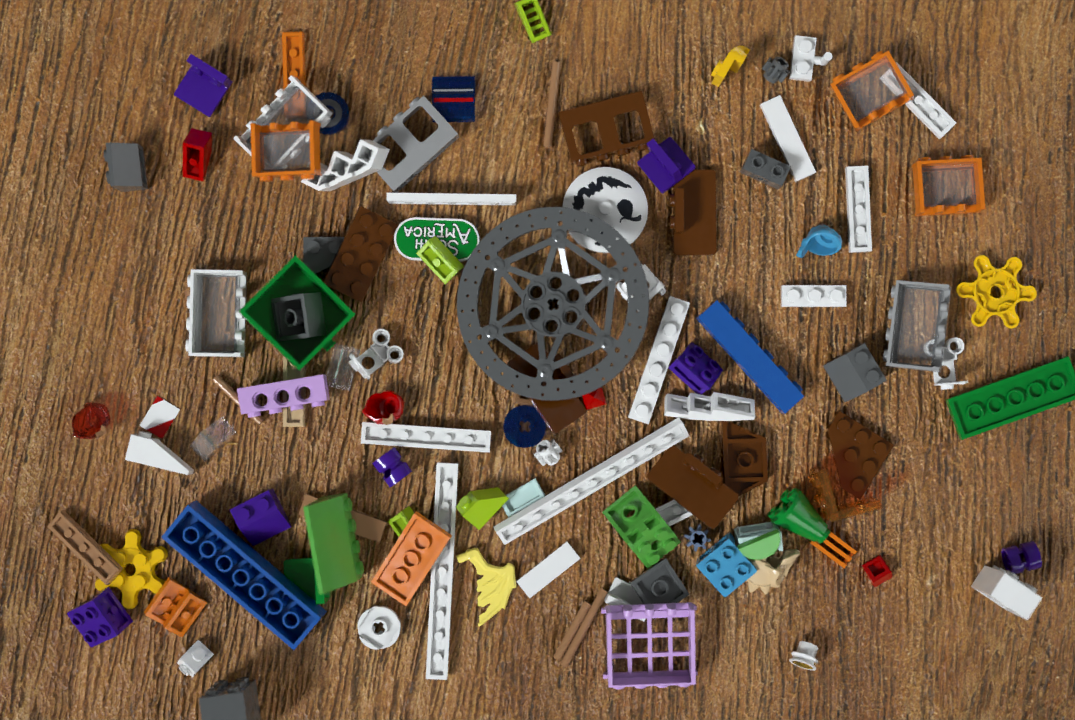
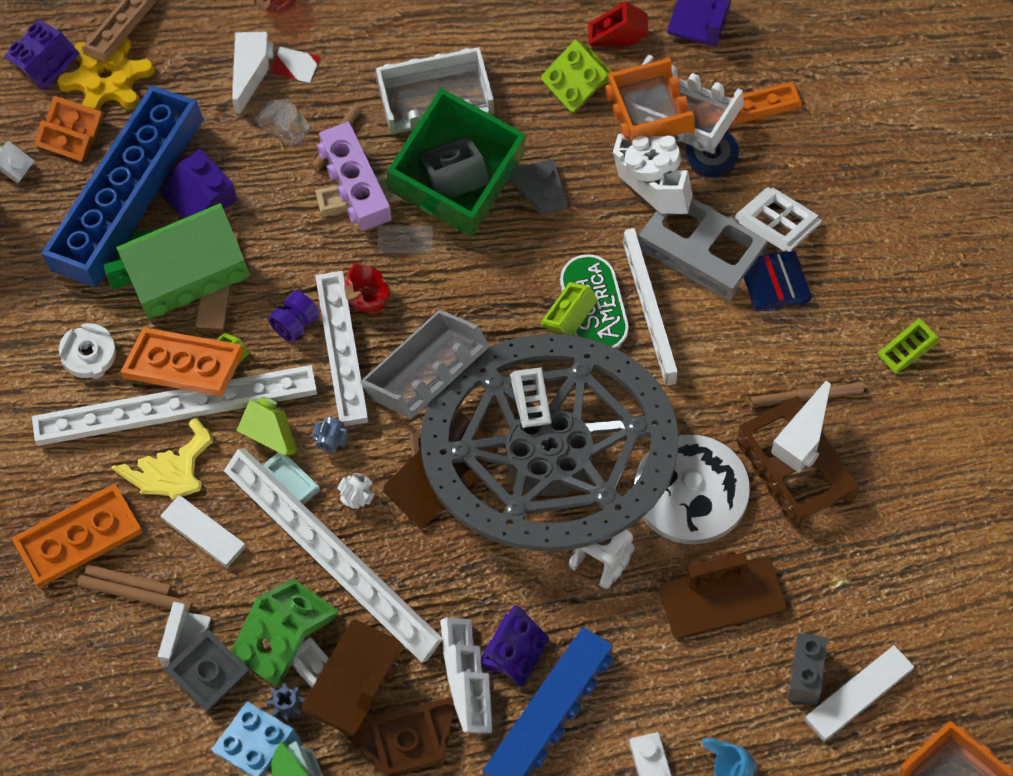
camera: 80 degrees right, 25 degrees down
(233, 197) = (576, 75): none -> lime bracket
(328, 167) = (665, 155): none -> white plate
(360, 254) = (550, 222): reddish brown plate -> none
(379, 352) = (435, 271): white piece -> none
(390, 92) = (760, 205): none -> white piece
(462, 378) = (425, 363): none -> light grey window
(497, 461) = (330, 434): none -> sand blue gear
(504, 315) = (537, 376): none -> white slope
(512, 426) = (381, 443): clear blue plate -> none
(529, 661) = (76, 535): none -> orange plate
(594, 399) = (443, 533): red slope -> none
(596, 118) = (800, 438): none -> white slope
(642, 679) = (172, 659): lavender window -> none
(659, 360) = (499, 600): white plate -> none
(665, 164) = (774, 542): dark purple bracket -> none
(732, 61) = (932, 583): yellow slope -> none
(775, 69) = (945, 650): dark grey gear -> none
(804, 57) = (976, 688): white plate -> none

